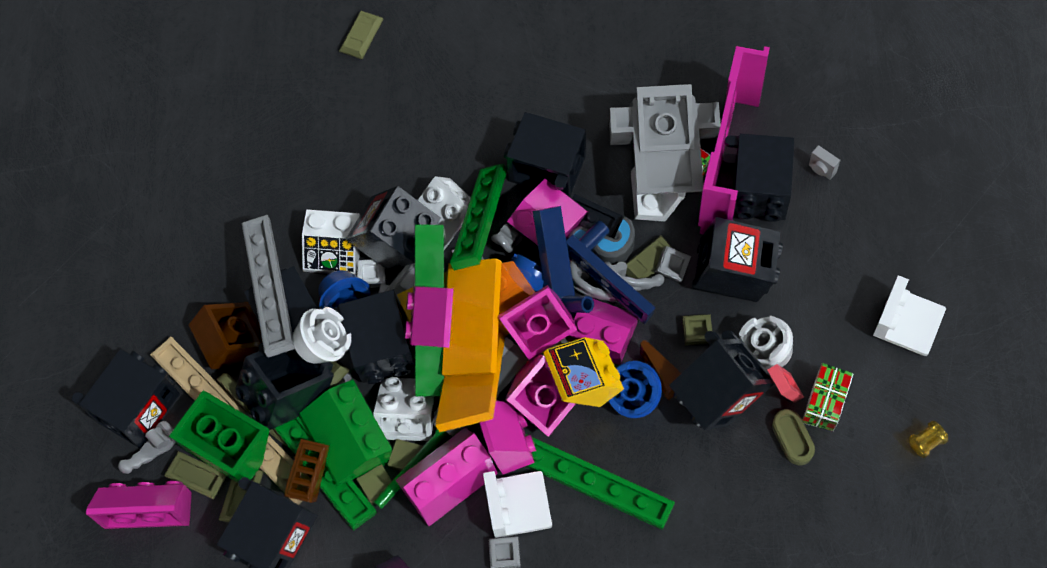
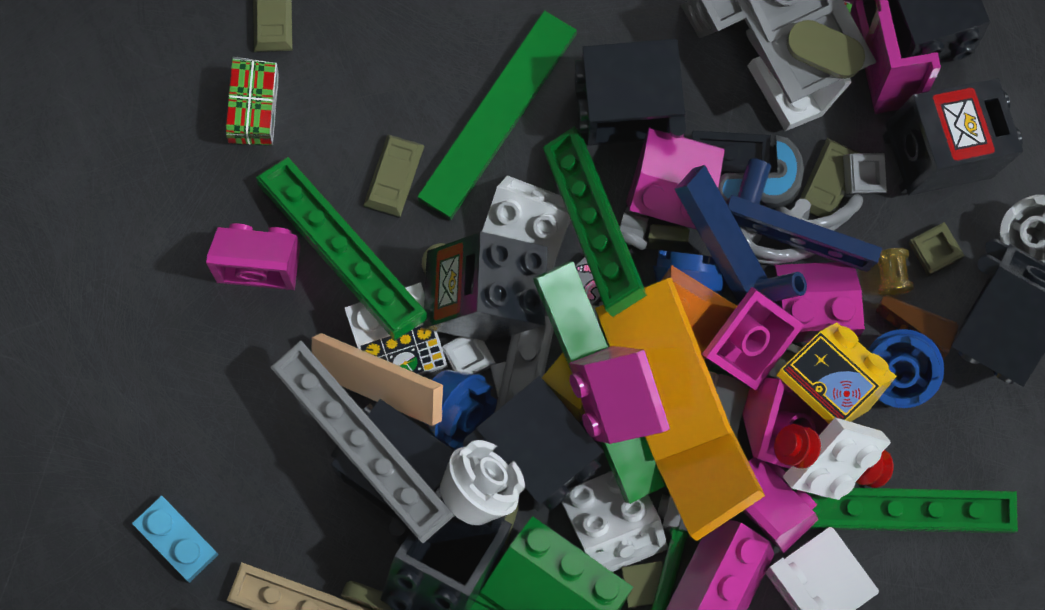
camera: 30 degrees left, 10 degrees up
(141, 307) = (175, 539): none -> medium azure plate
(226, 333) = (322, 525): reddish brown slope -> none
(272, 162) = (254, 257): none -> dark pink slope
(303, 258) = (380, 379): none -> light nougat tile
(319, 76) = (252, 102): none -> piece
(324, 177) = (342, 249): none -> green tile
(383, 152) = (393, 175): none -> olive tile
(461, 142) = (497, 115): none -> green tile
(527, 250) = (668, 237): none -> olive tile
(557, 421) = (835, 458): none -> white plate
(665, 322) = (894, 272): none -> clear yellow bush
(673, 168) = (825, 49): none -> olive tile

